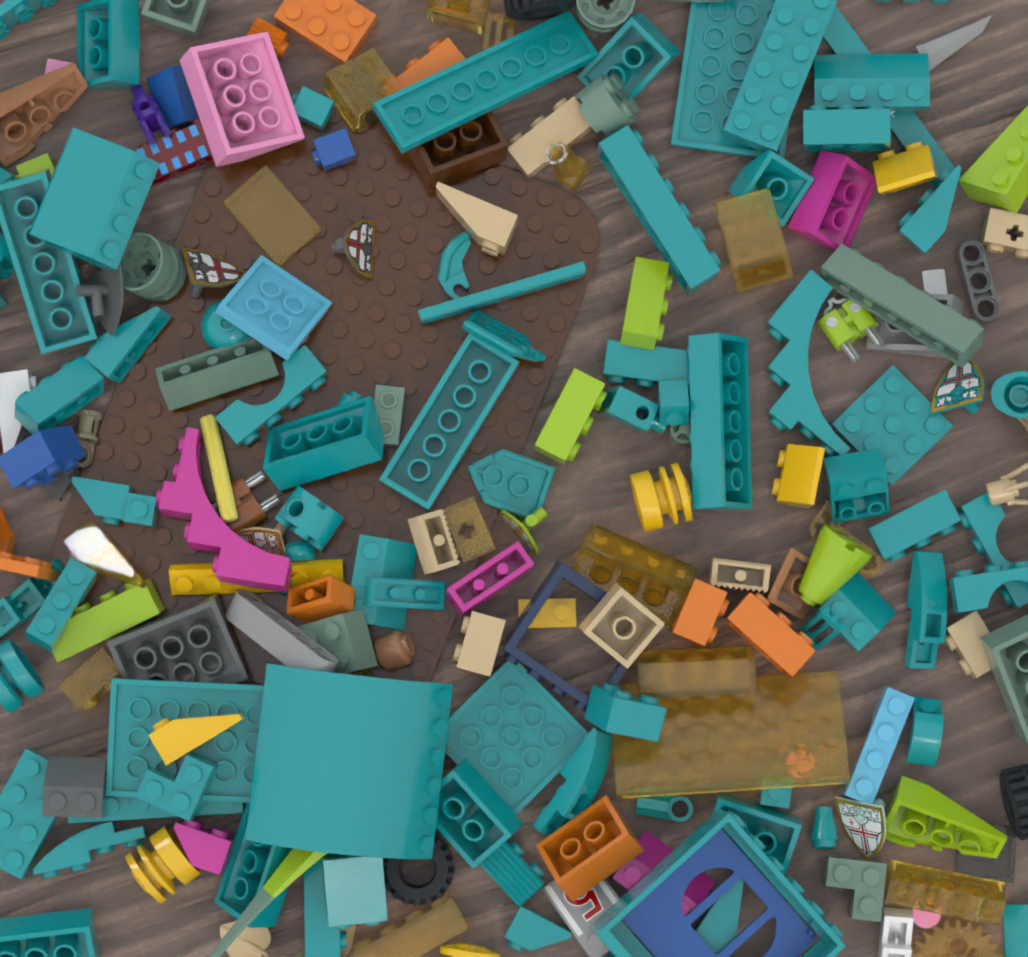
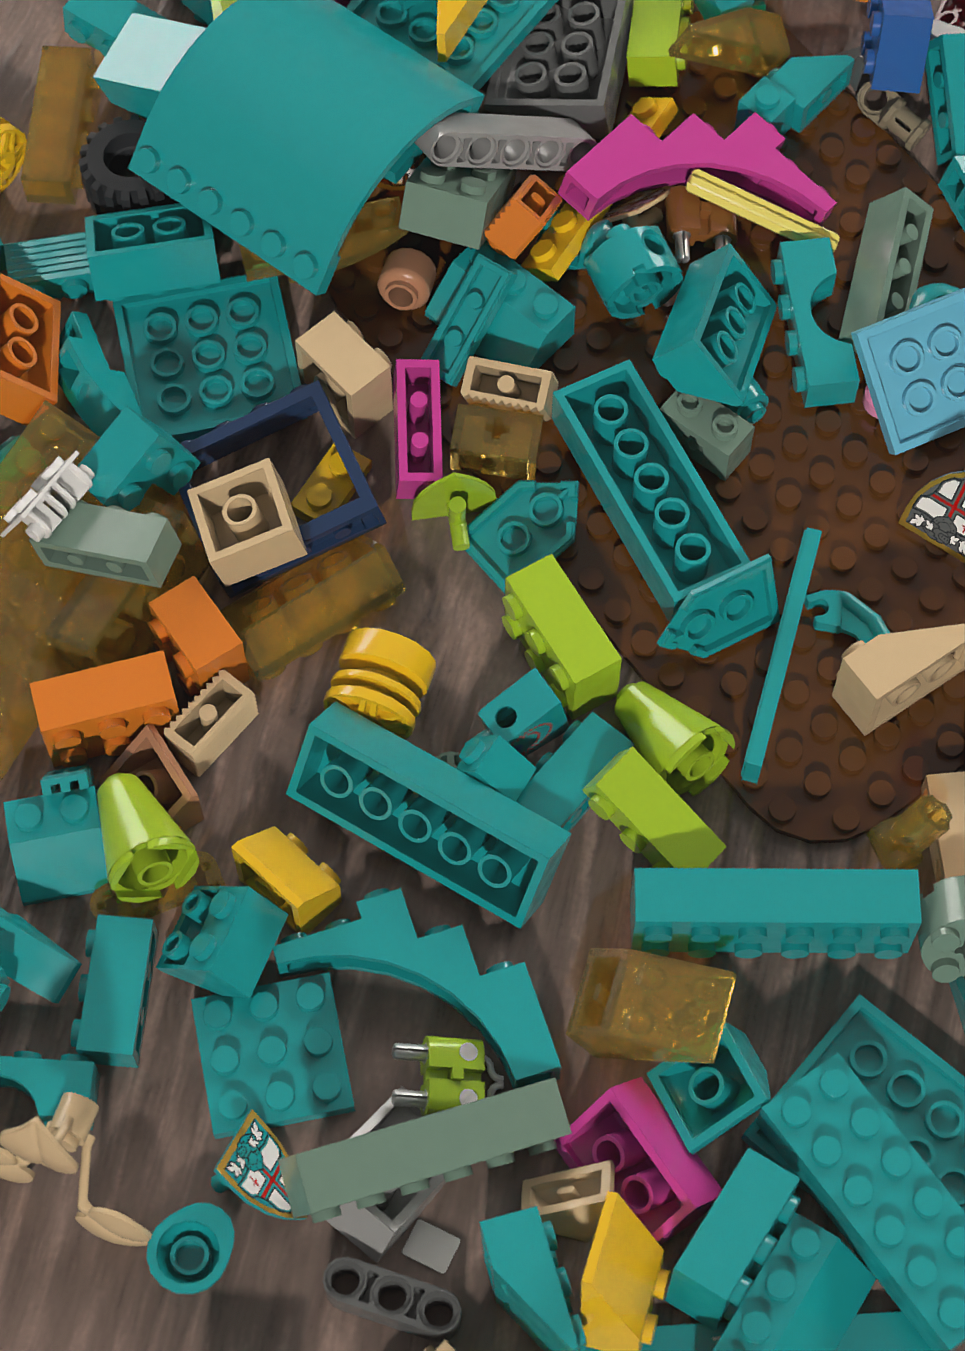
camera: 125 degrees right, 20 degrees down
(588, 325) = (673, 737): none -> lime cone
(685, 692) = (112, 544): none -> sand green brick
(685, 746) = (55, 487): none -> white hinge
(872, 227) = (571, 1198): none -> tan slope

